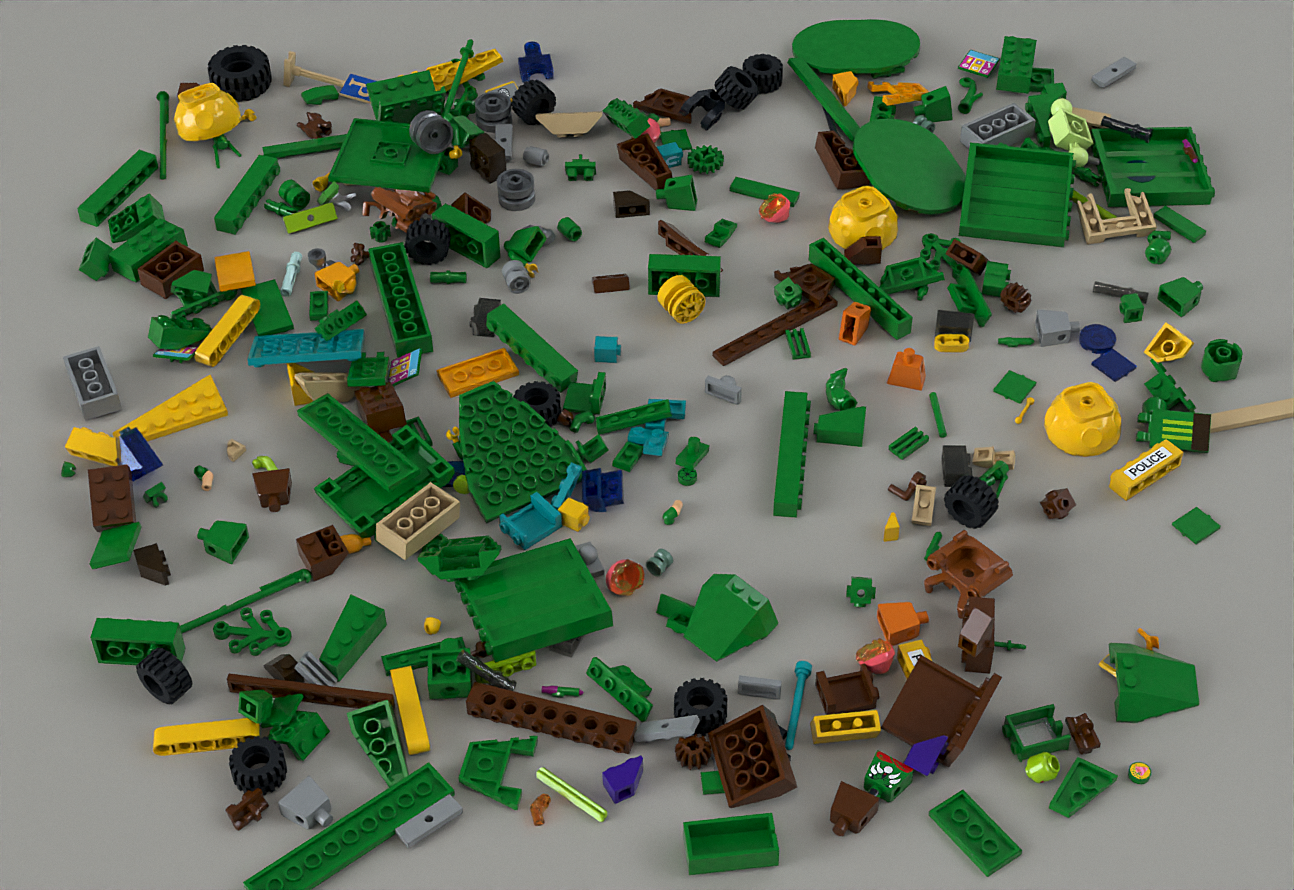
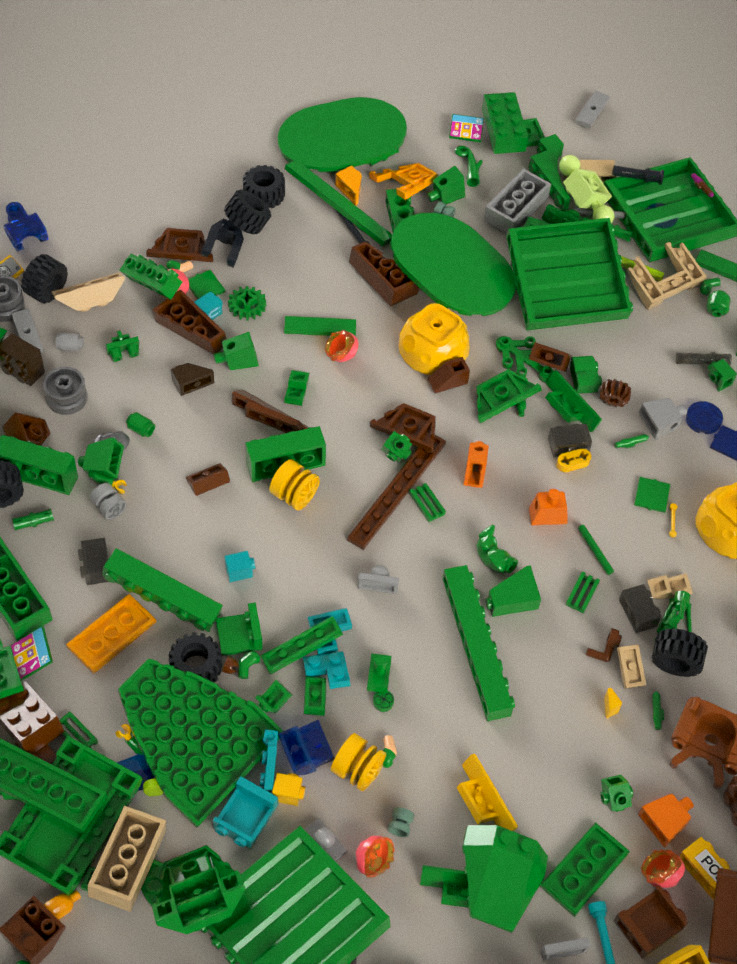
camera: 25 degrees left, 10 degrees up
(641, 507) = (361, 763): none -> yellow wheel
(740, 560) = (482, 796): none -> yellow bracket
(807, 640) = (584, 869): none -> green tile
(861, 288) = (465, 421): green brick -> none

